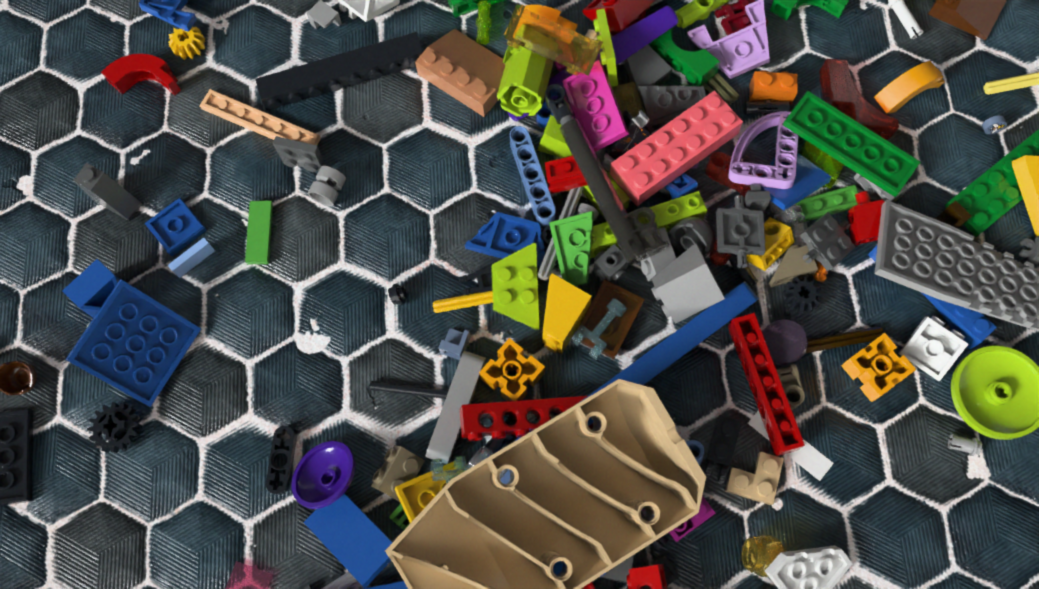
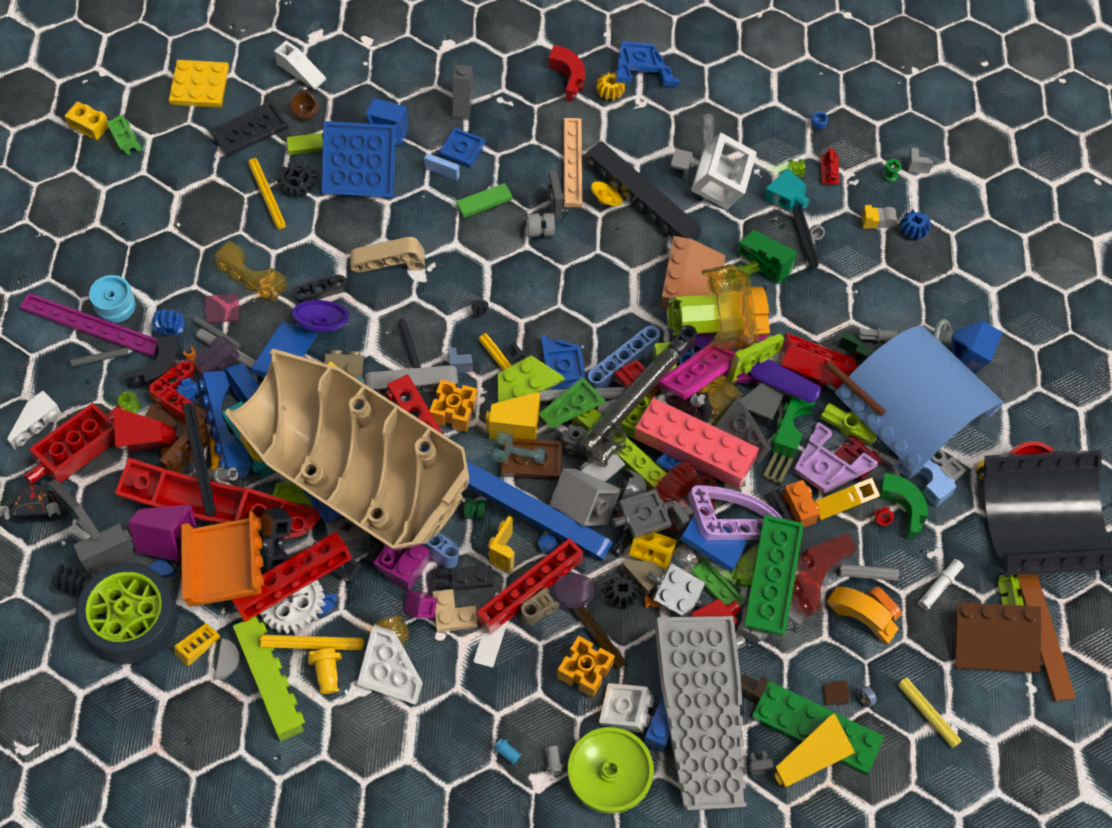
camera: 60 degrees right, 10 degrees down
(68, 399) = (305, 143): none -> lime tile
(113, 472) = (267, 193): none -> yellow axle
(243, 519) = (267, 282): none -> clear yellow arch
(280, 365) = (388, 253): none -> tan beam
(322, 105) = (606, 194): none -> yellow dish
(708, 400) = (499, 553): none -> yellow bracket
(711, 188) = (677, 483): none -> clear red gear
(715, 346) = (547, 544): none -> blue tile
(737, 509) = (420, 604): none -> magenta panel
(784, 40) = (847, 498): none -> yellow slope
(813, 23) = (884, 521): none -> red plate
(866, 61) = (869, 572): none -> light grey axle
(901, 65) = (881, 597): none -> orange beam
(934, 490) = (507, 751): none -> dark azure pin
(980, 148) = (836, 693): none -> reddish brown slope

